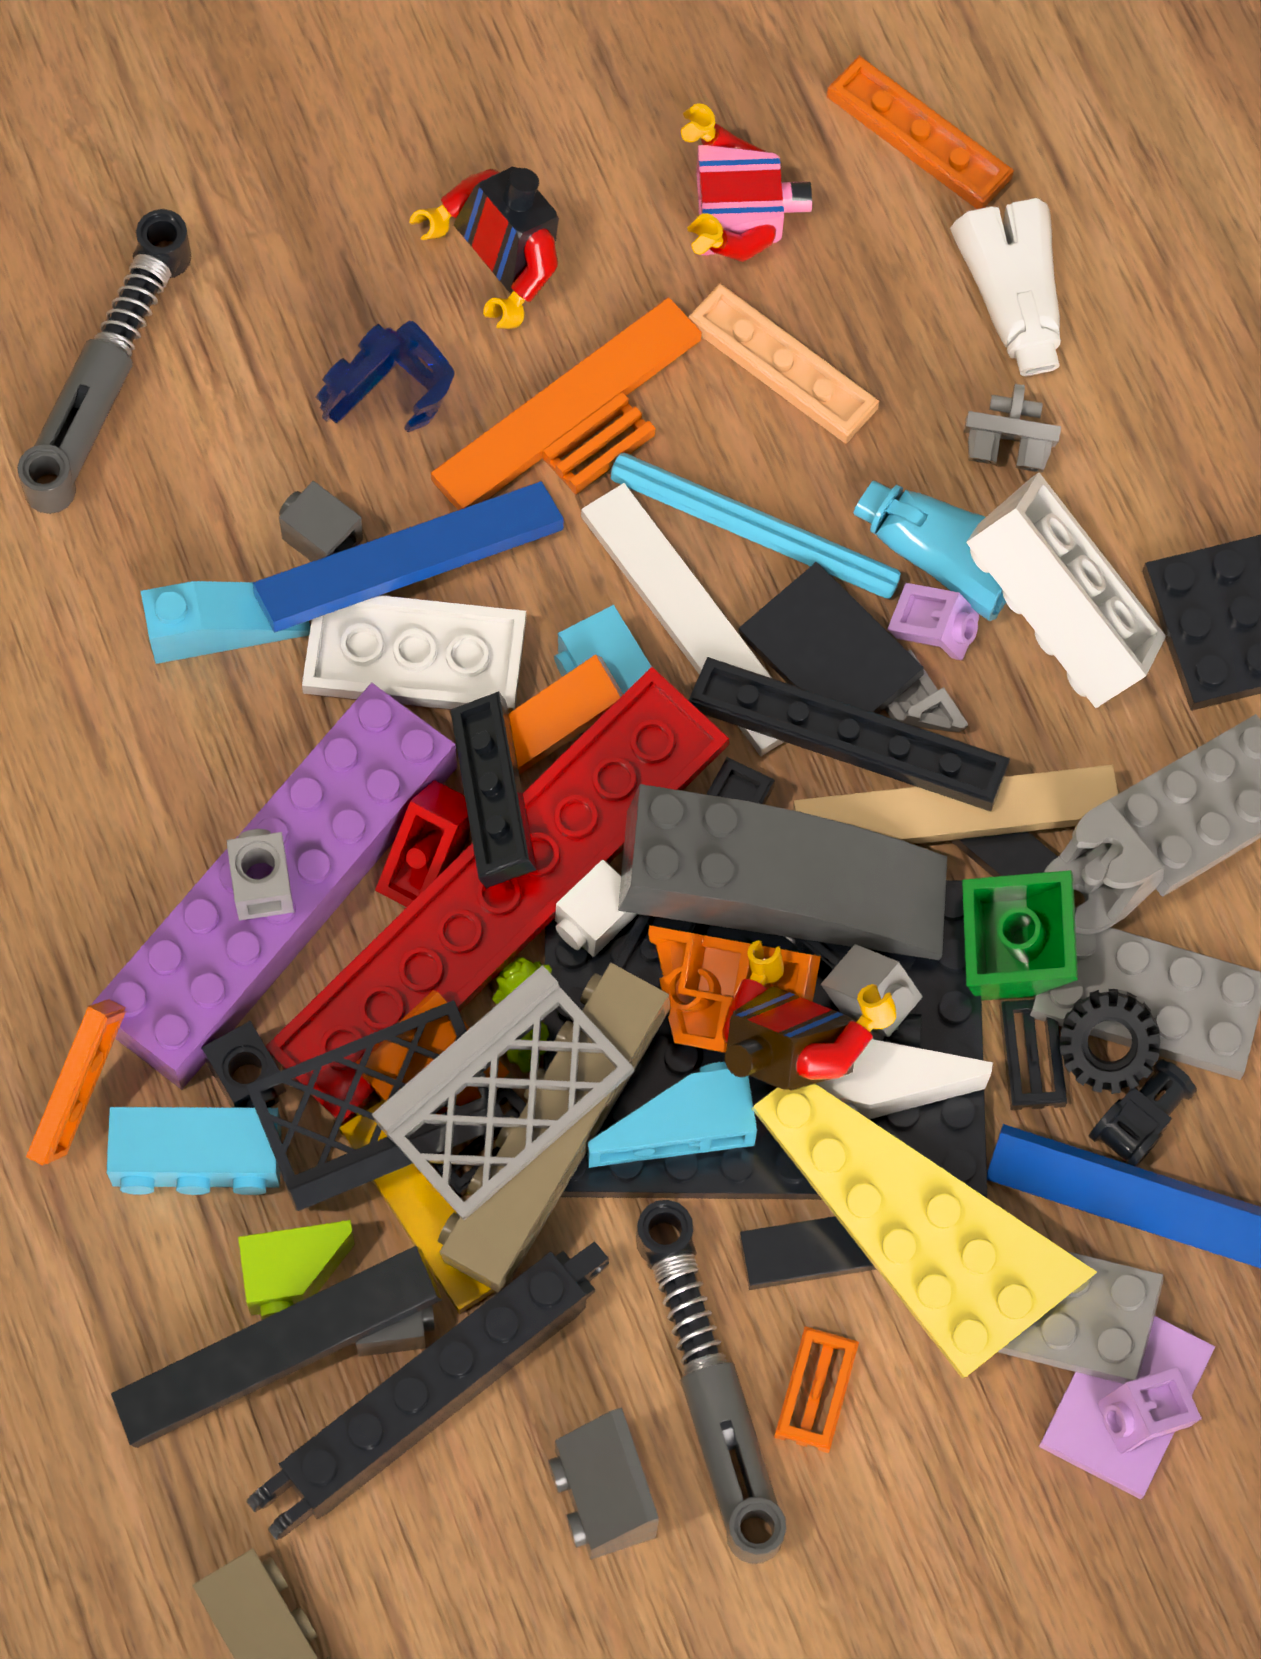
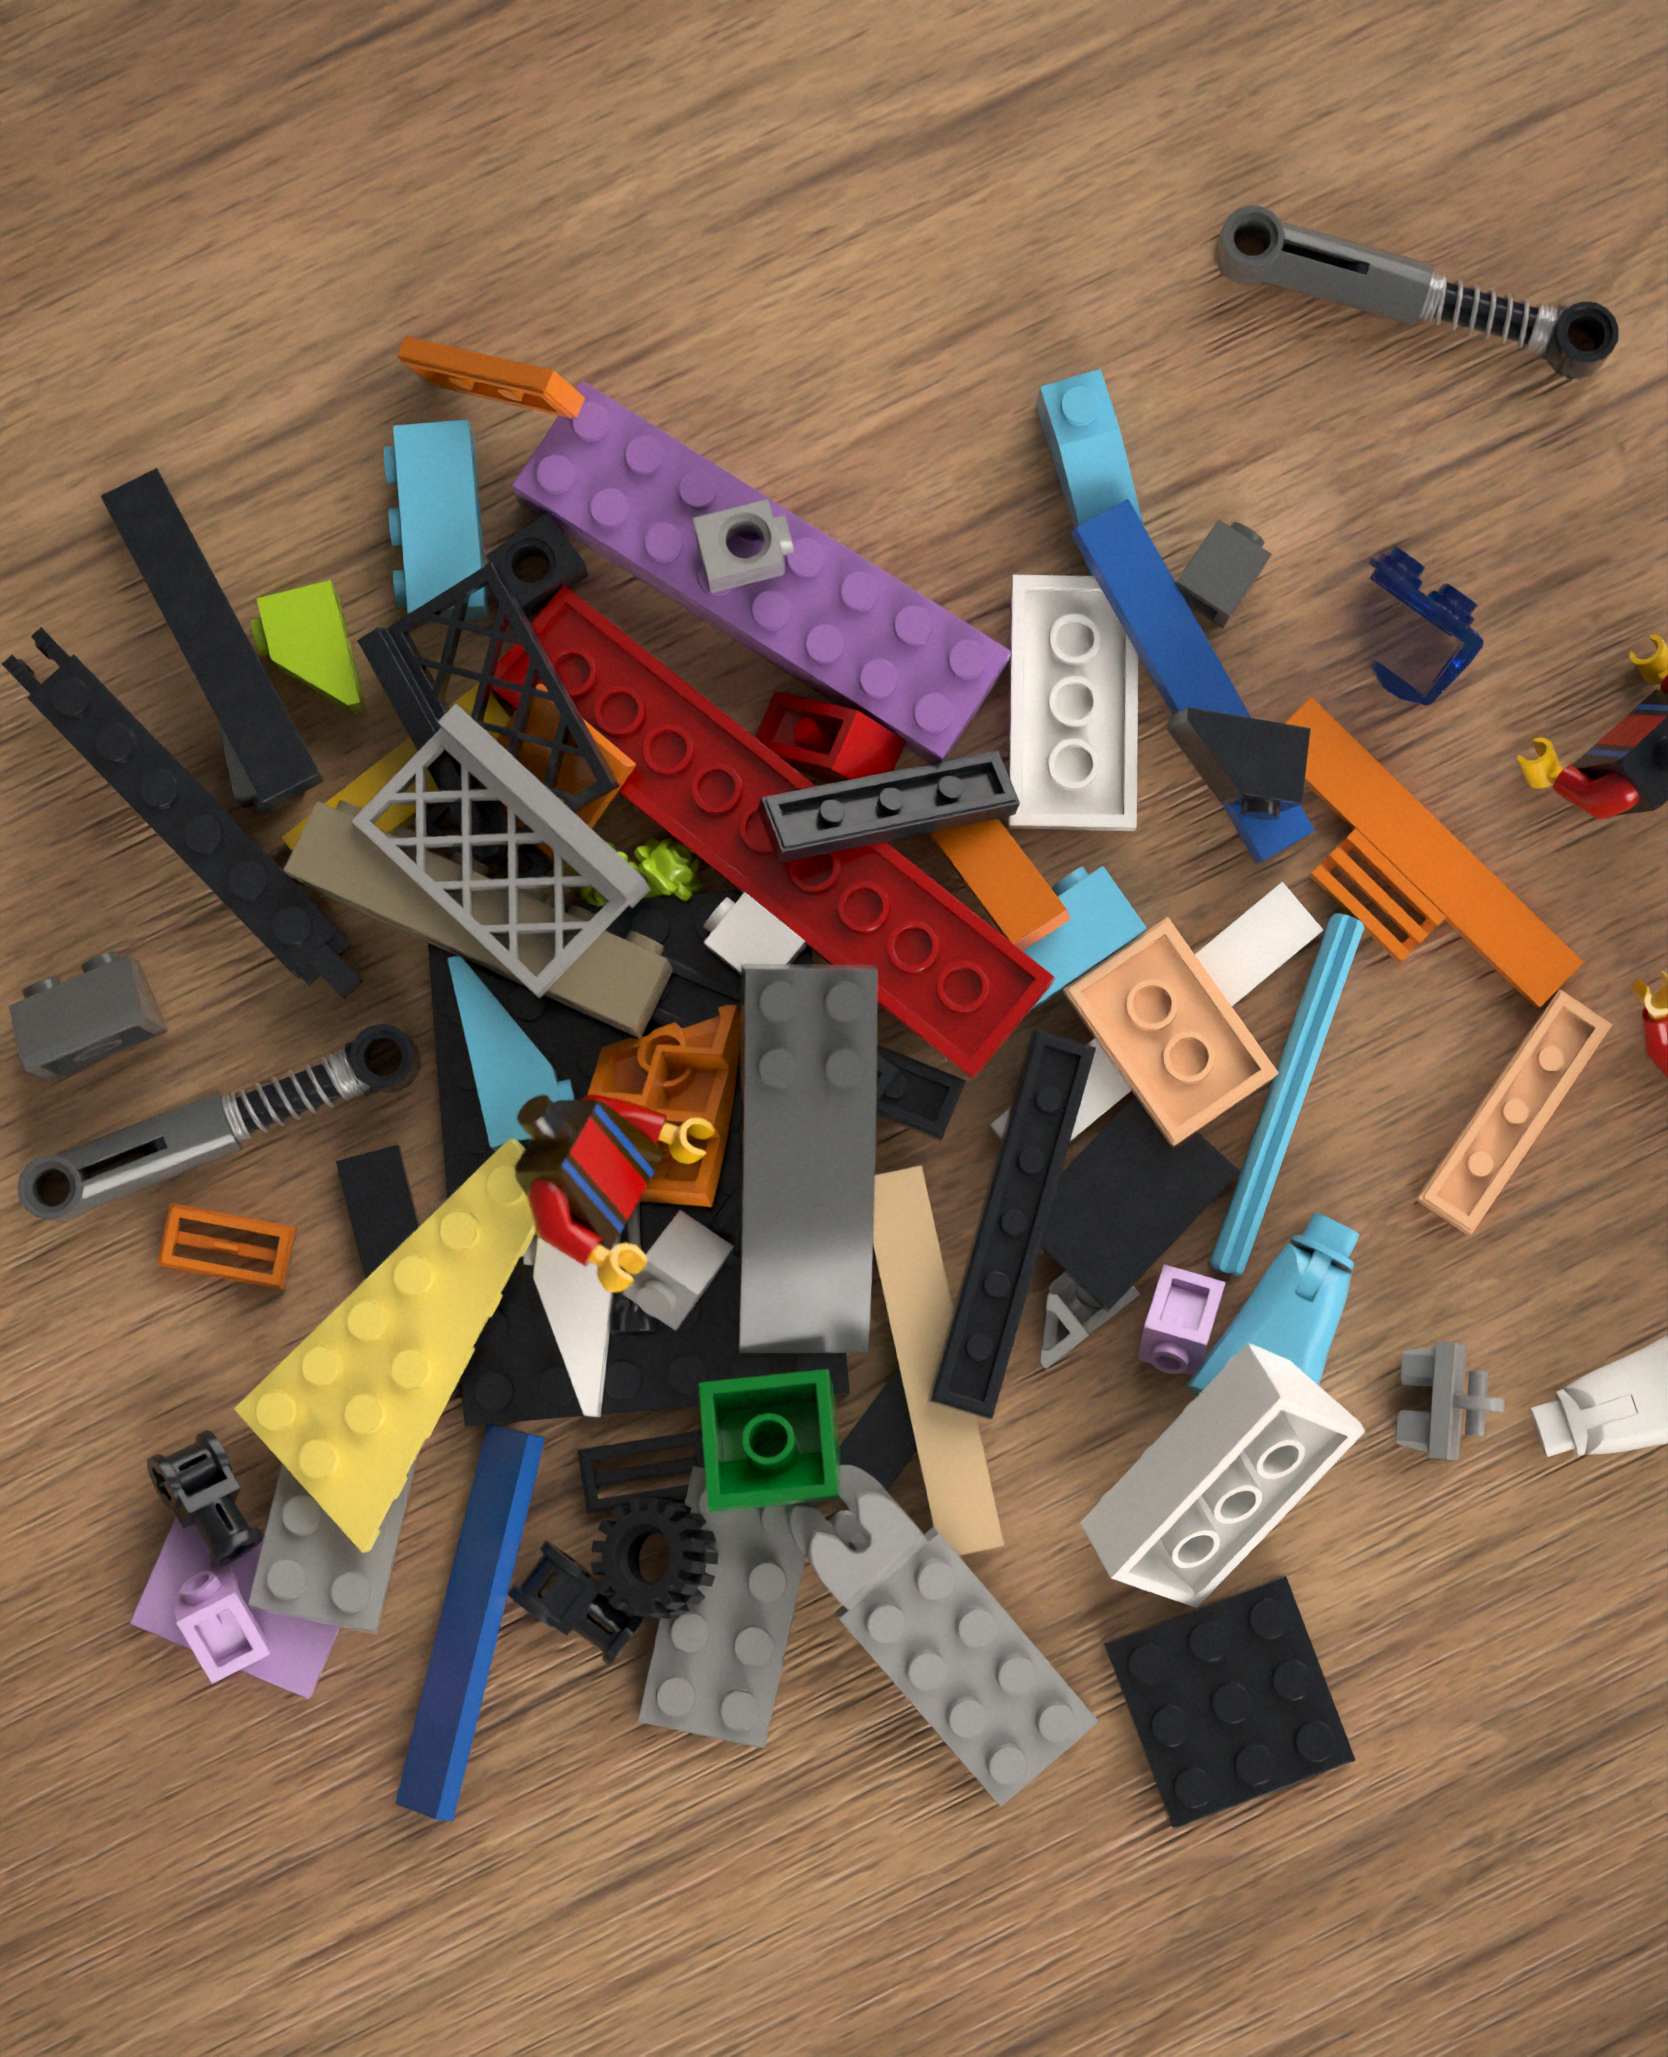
camera: 85 degrees right, 15 degrees up
(483, 513) = (1245, 759): none -> black slope
(700, 600) = (1170, 1032): none -> light nougat tile
(1036, 1416) = (203, 1492): none -> black connector

